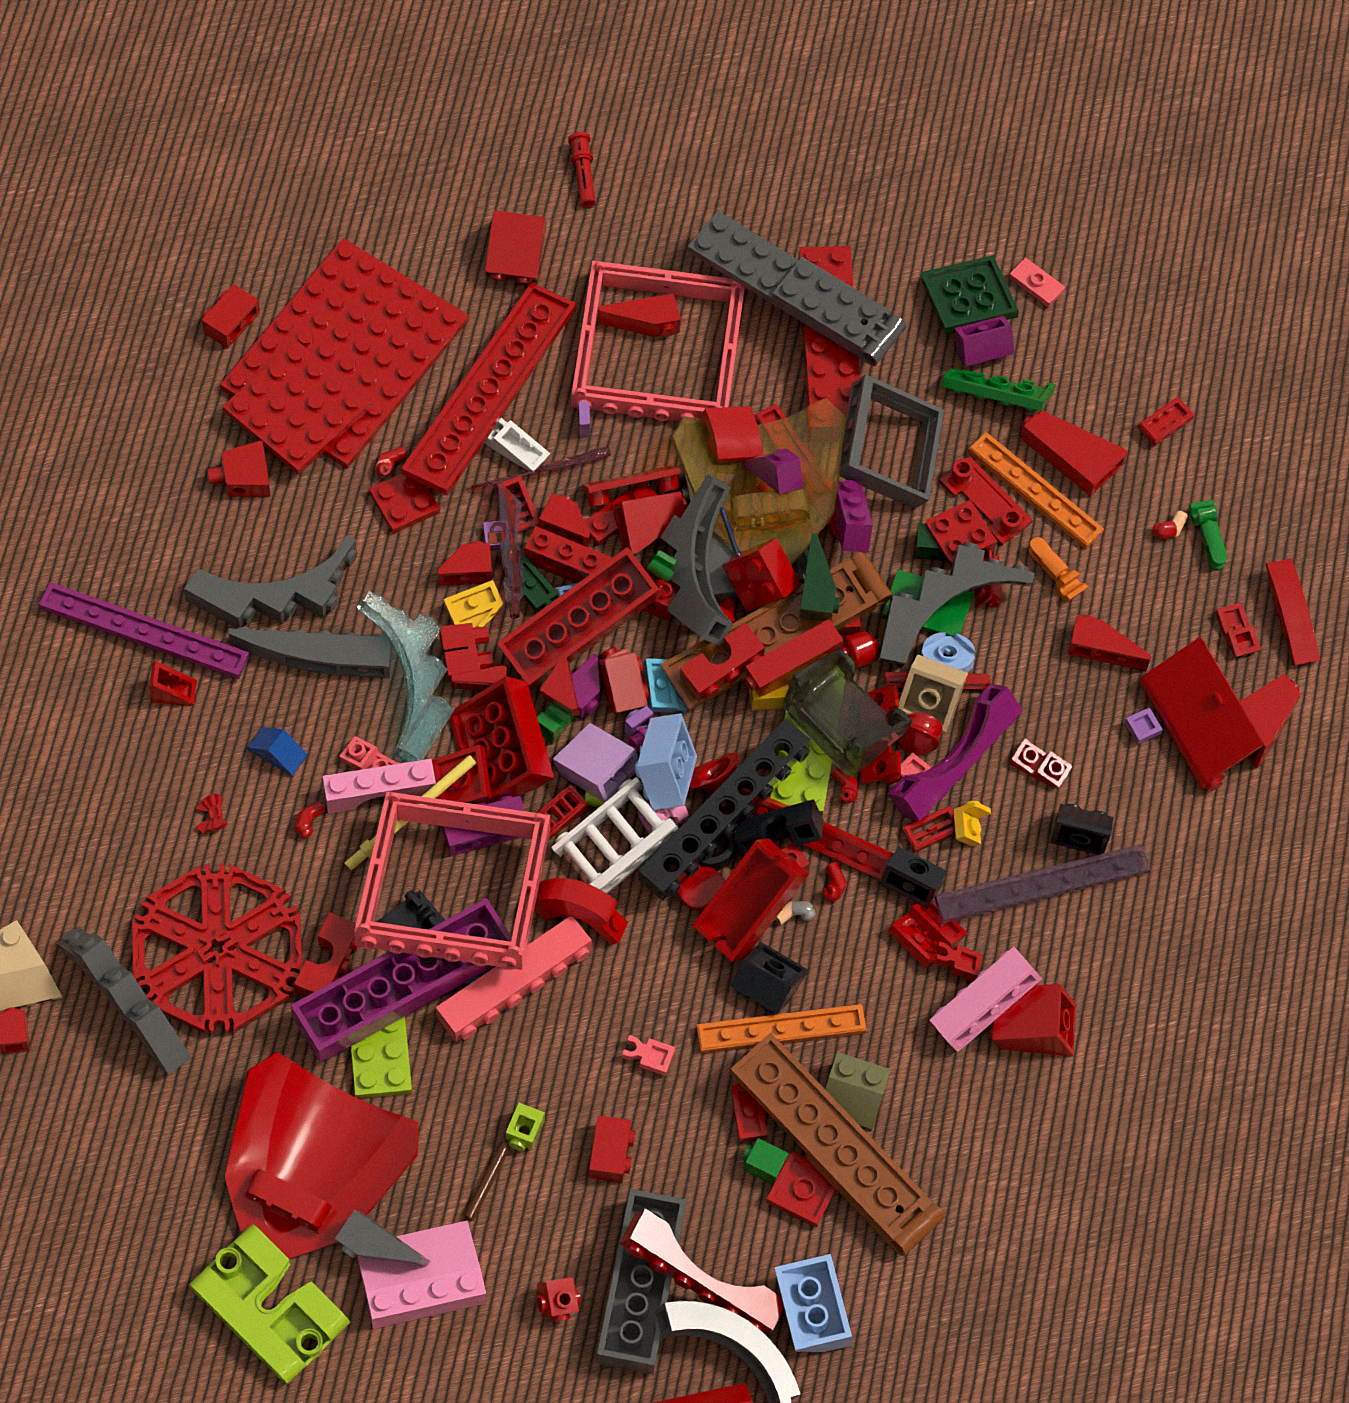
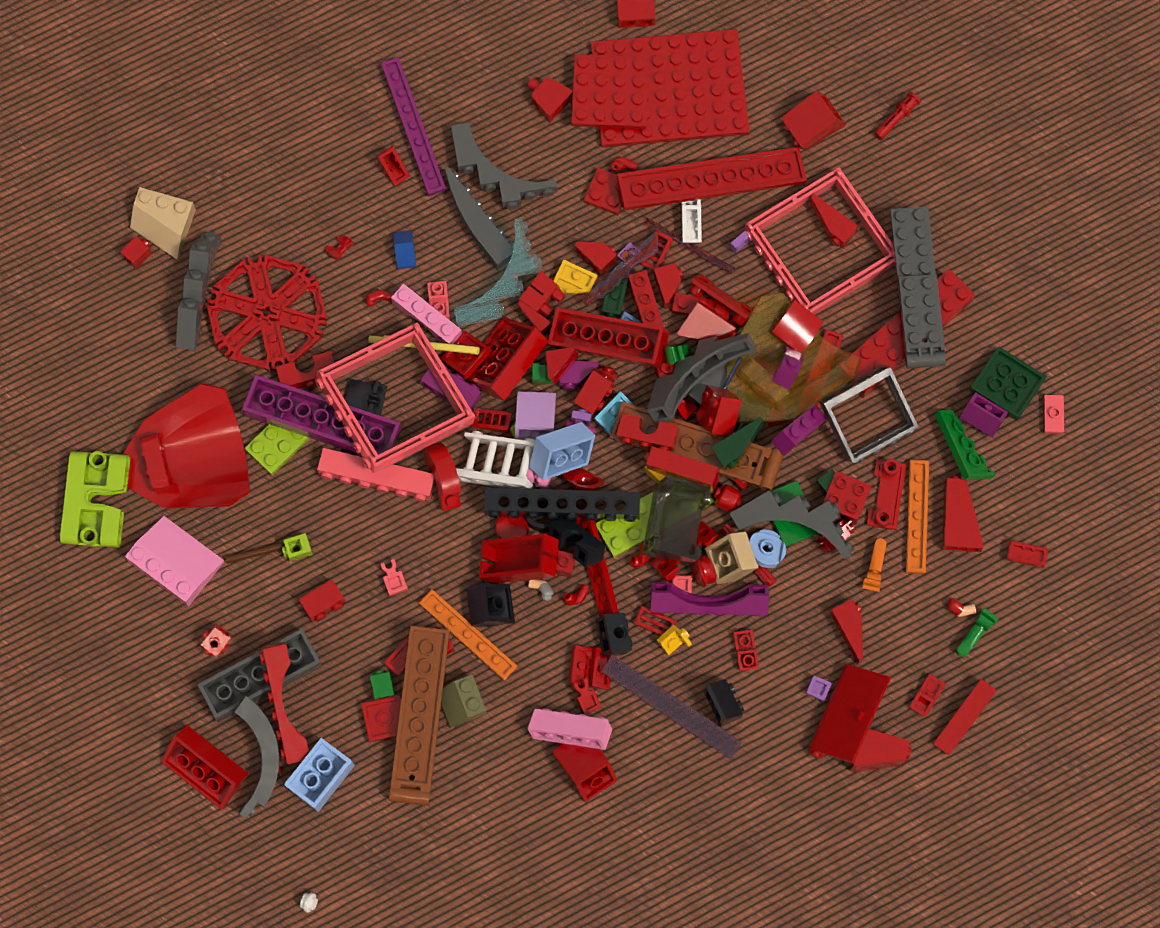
camera: 55 degrees right, 10 degrees up
(370, 1240) = (167, 522): flat silver slope -> none

